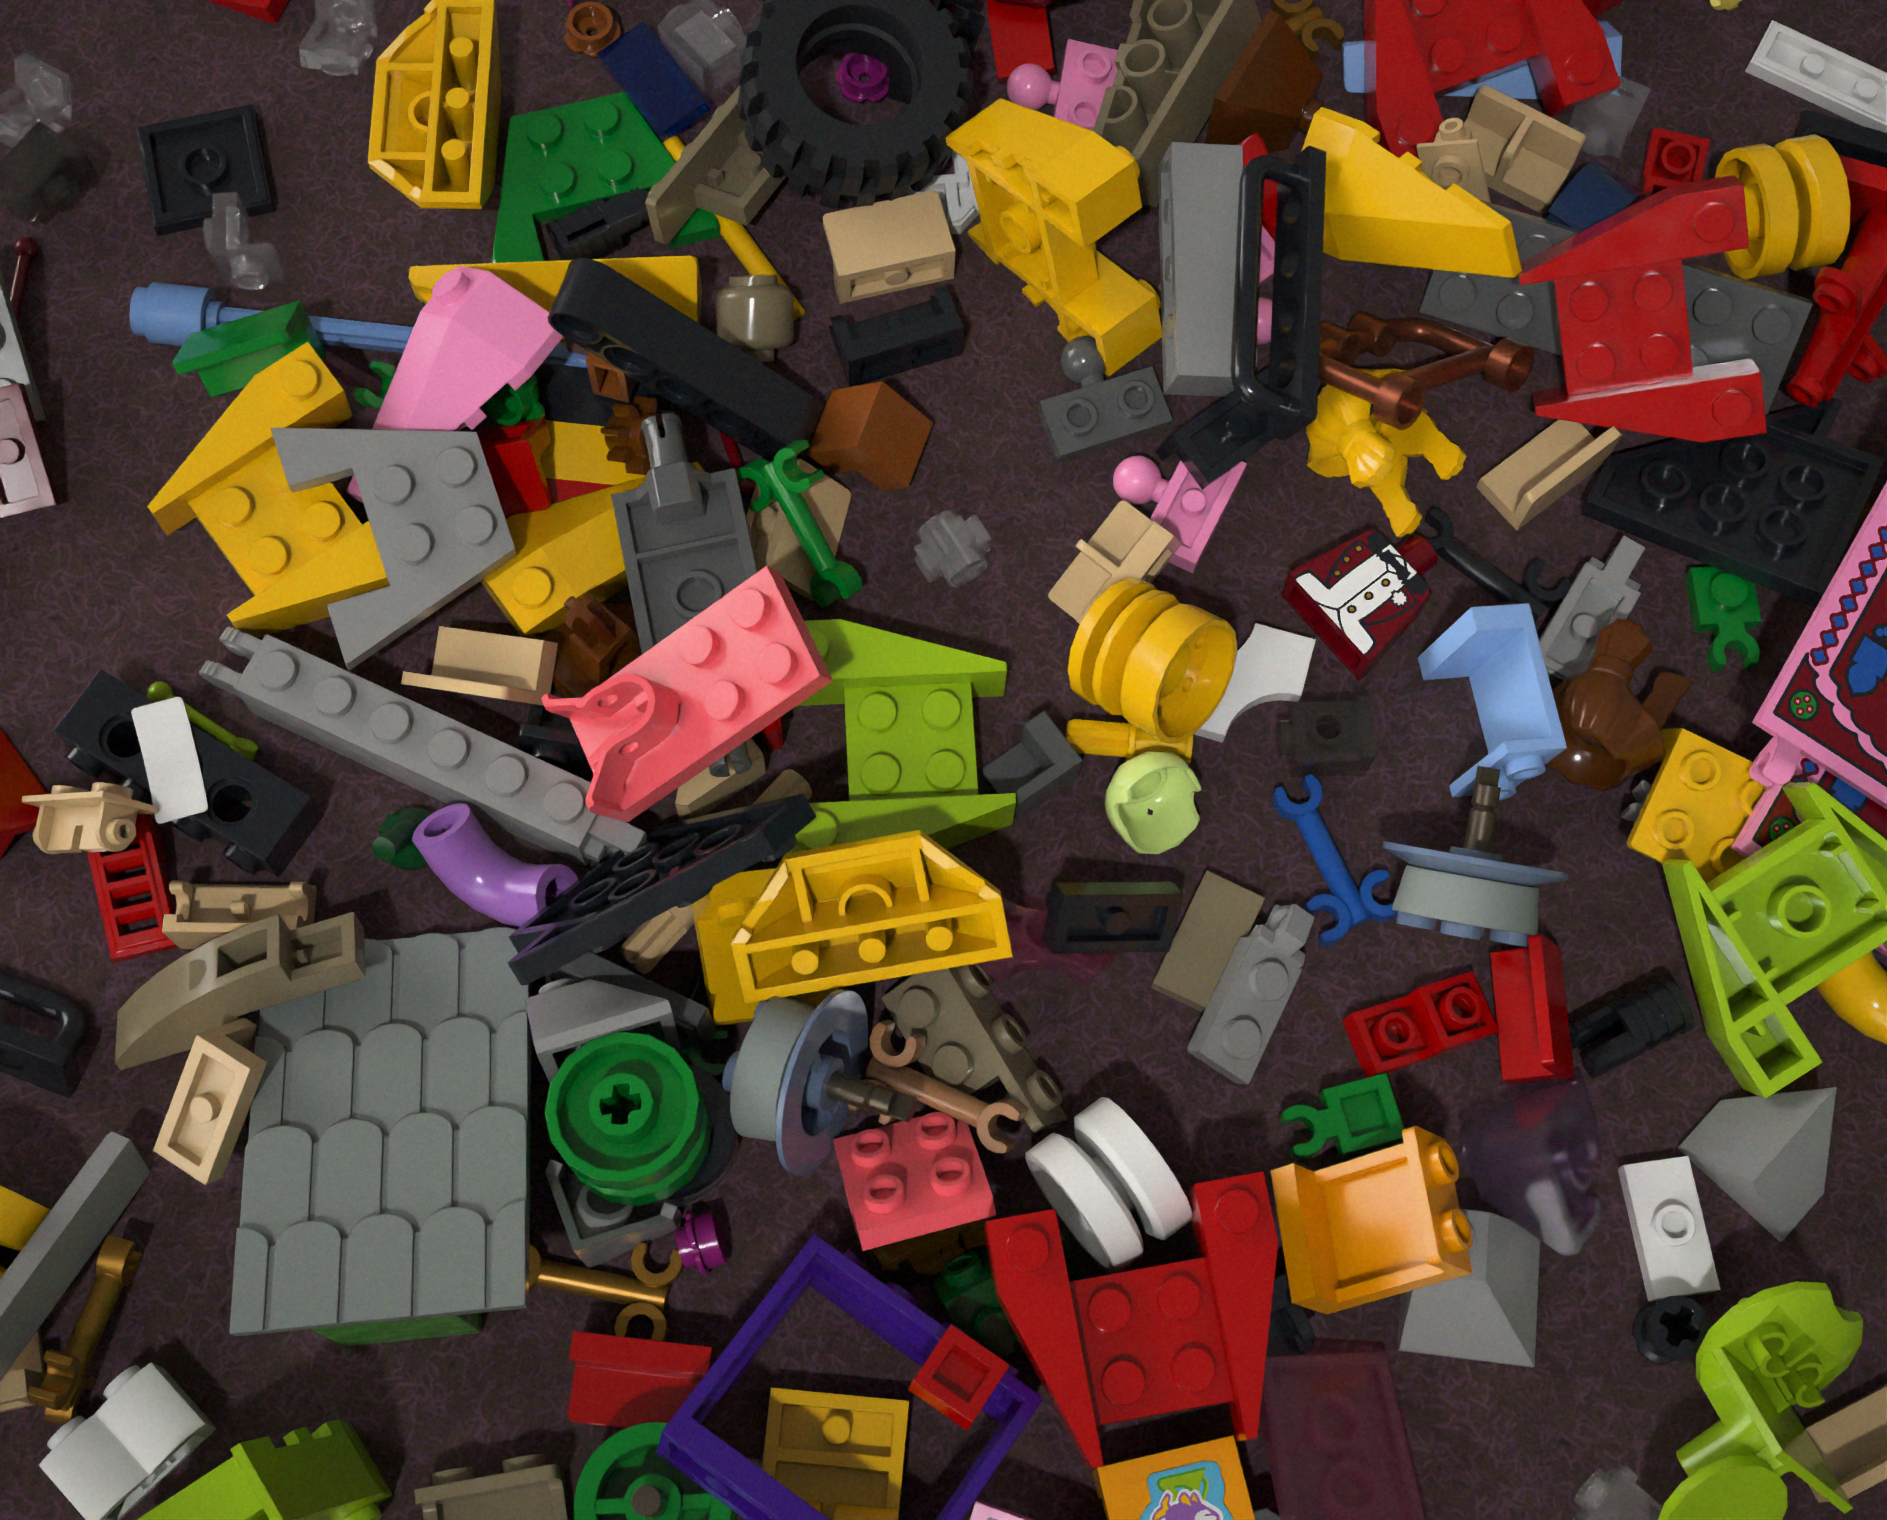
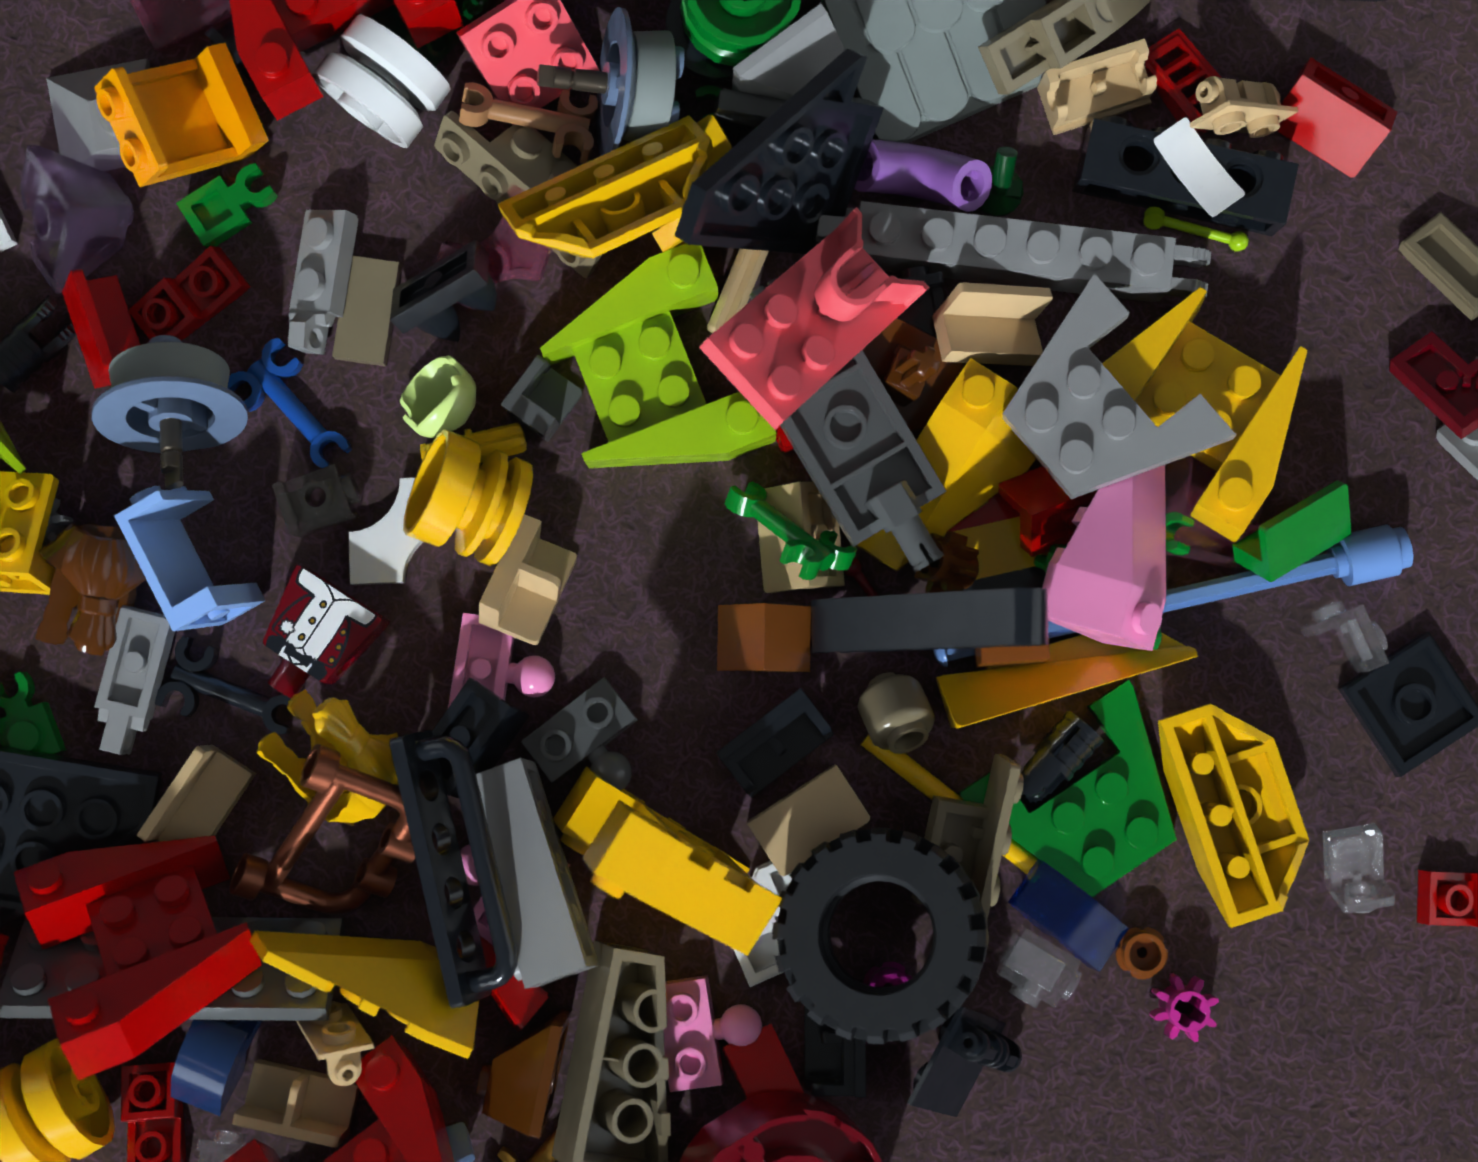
camera: 165 degrees right, 15 degrees up
(952, 548) = (663, 559): clear gear -> none

